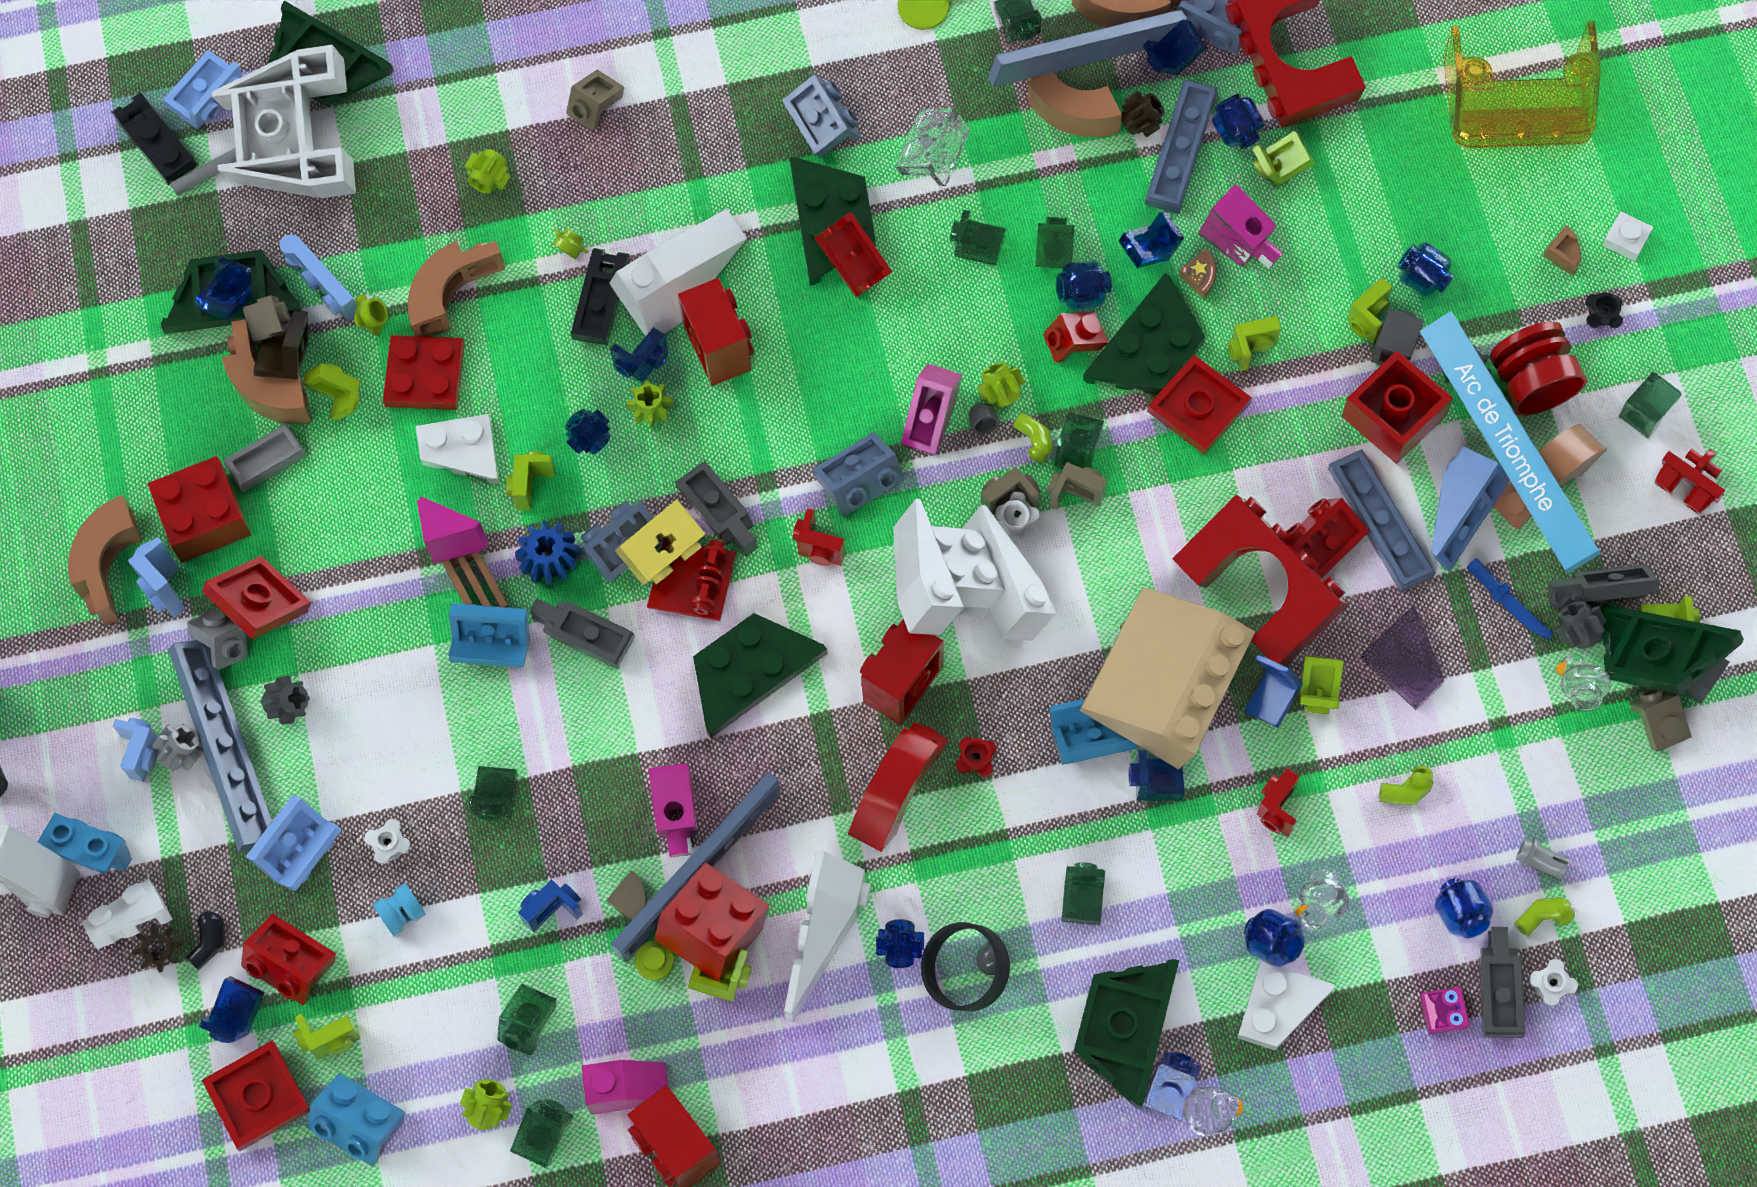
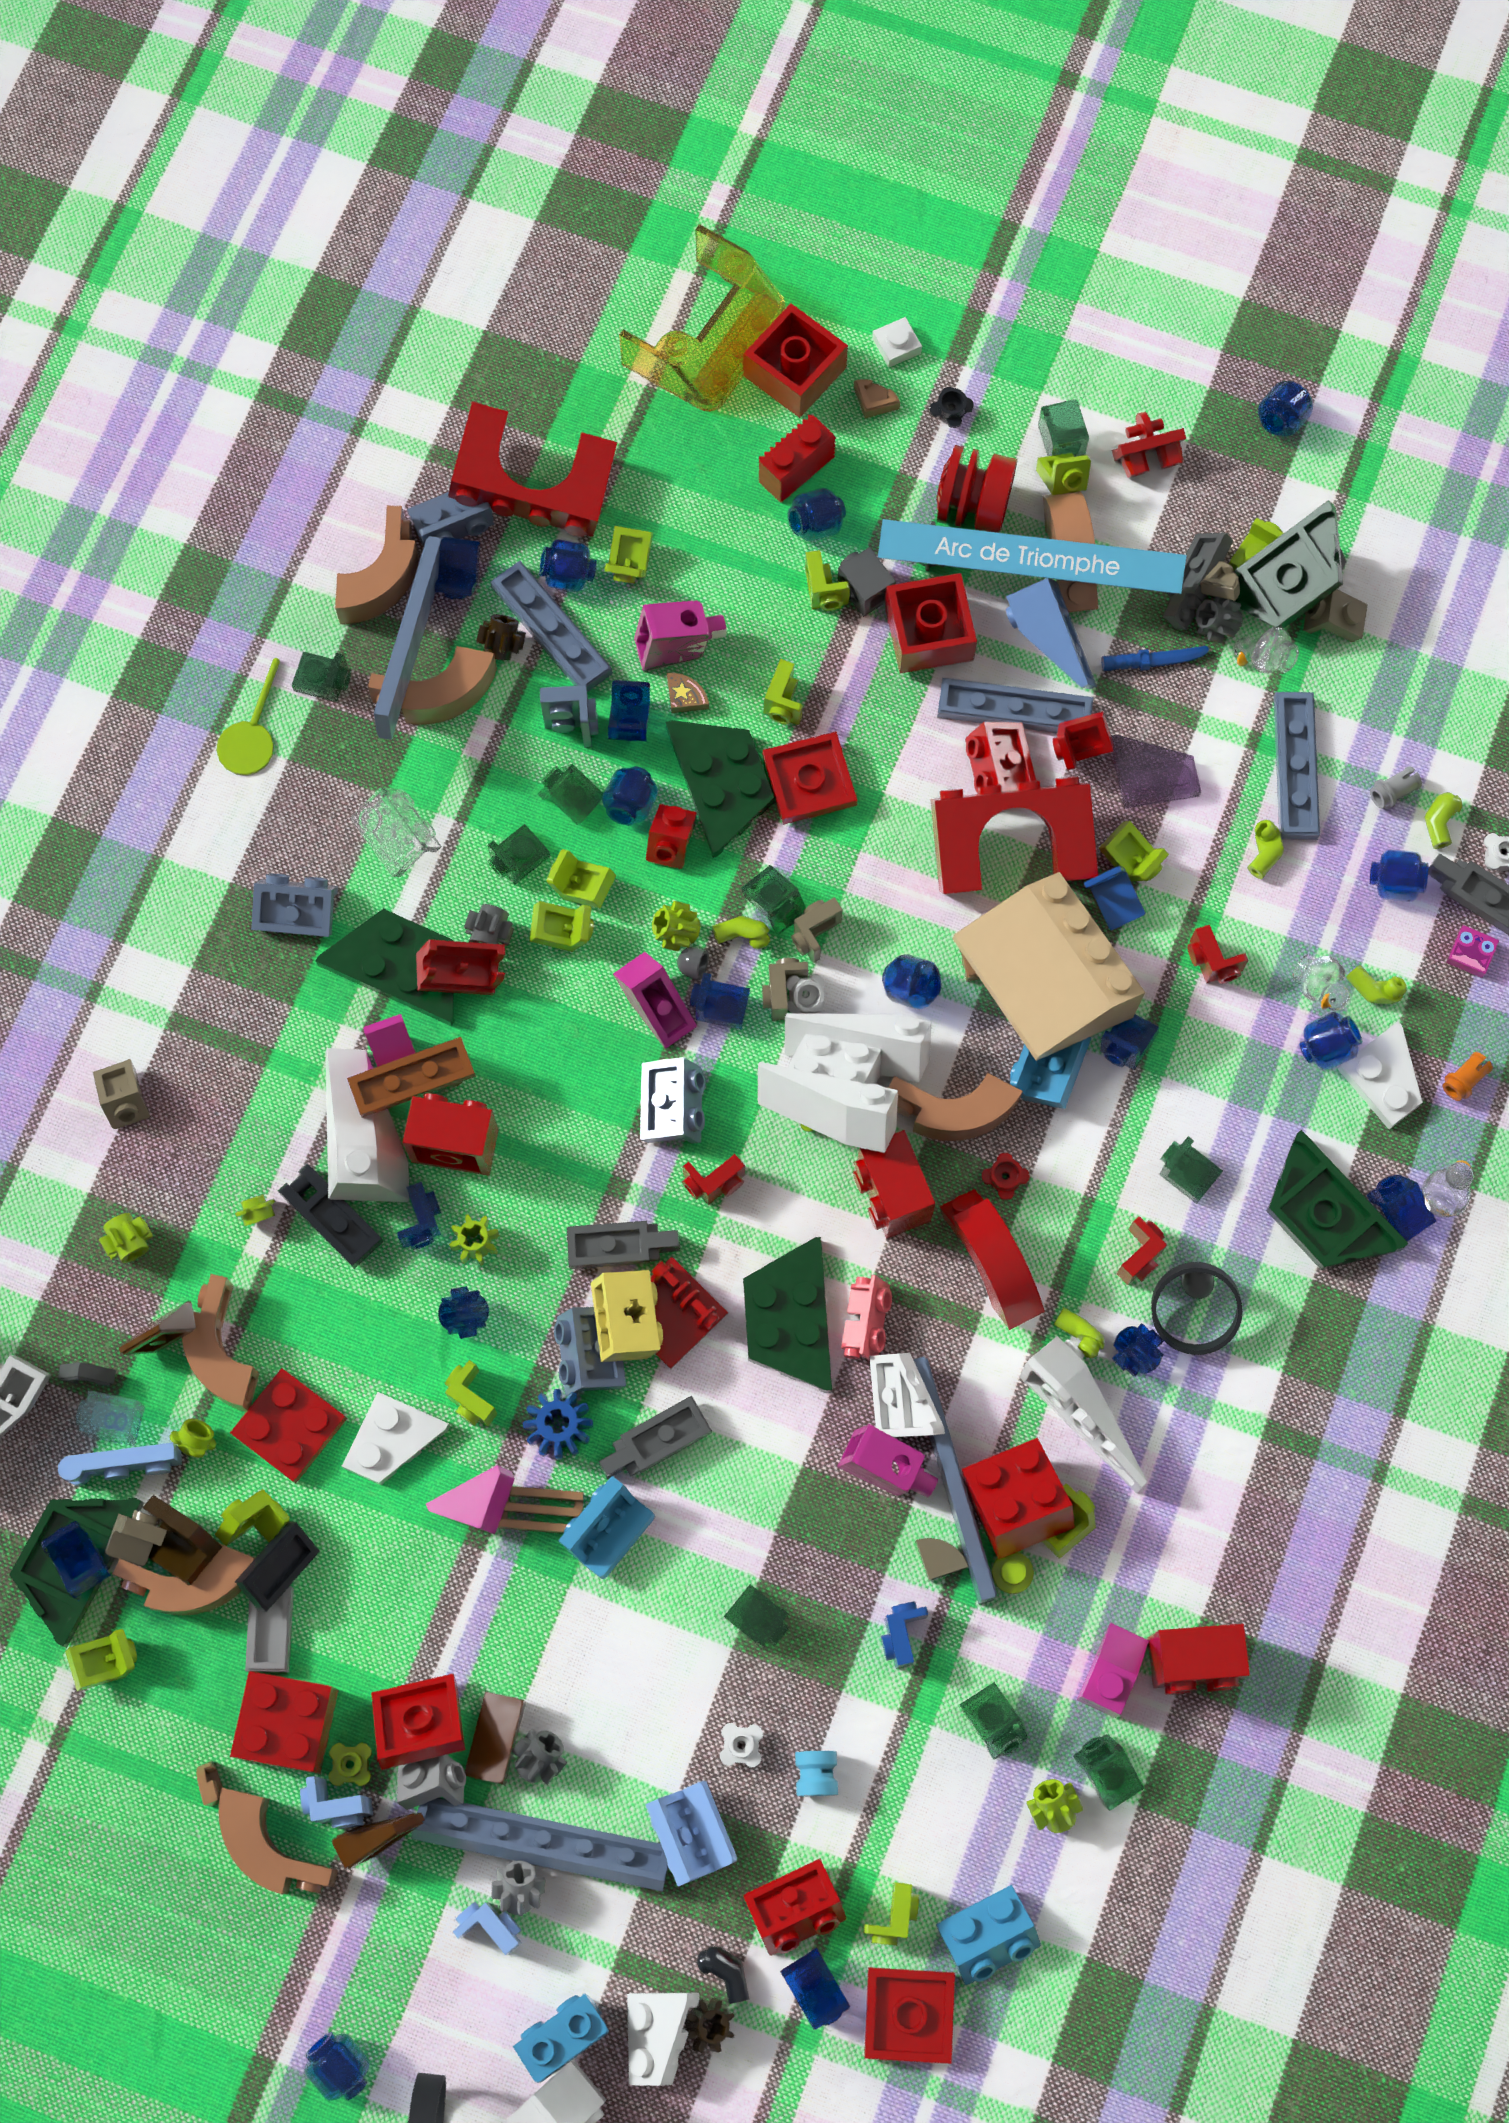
camera: 60 degrees left, 5 degrees up
(124, 485) = (209, 1783): none -> medium nougat tile
(149, 622) = (372, 1839): none -> reddish brown slope
(167, 359) = (101, 1660): none -> lime bracket
(188, 574) = (357, 1774): none -> lime plate
(292, 659) = (495, 1738): none -> reddish brown slope
(310, 428) = (277, 1566): none -> black tile
(347, 250) = (110, 1418): none -> clear light blue brick
(370, 214) = (86, 1372): none -> dark grey tile
(429, 236) = (162, 1331): none -> reddish brown slope
(734, 784) = (901, 1398): none -> white wing
(739, 273) = (411, 1076): none -> dark orange piece
(752, 253) = (389, 1040): none -> dark pink slope
(772, 732) = (871, 1300): none -> coral hinge
(889, 891) = (1081, 1329): none -> lime arm
(902, 255) = (489, 925): none -> dark grey gear
(940, 304) = (561, 926): none -> lime bracket
(963, 454) = (720, 1002): none -> clear blue bracket
(979, 902) = (1142, 1262): none -> red bracket
(987, 293) = (580, 880): none -> lime bracket
(1005, 697) = (958, 1117): none -> nougat arch
(1082, 582) = (912, 981): none -> clear blue head
(1115, 196) = (569, 708): none -> bracket
(1324, 1070) = (1459, 1084): none -> orange pin
(1349, 953) = (1377, 991): none -> lime arm
(1387, 583) = (1082, 739): none -> red bracket
(1461, 223) = (796, 458): none -> red brick
(1501, 769) = (1296, 765): none -> sand blue tile
(1543, 168) = (795, 360): none -> red brick
(1610, 603) = (1221, 582): none -> dark tan tile
(1611, 427) = (1064, 472): none -> lime bracket

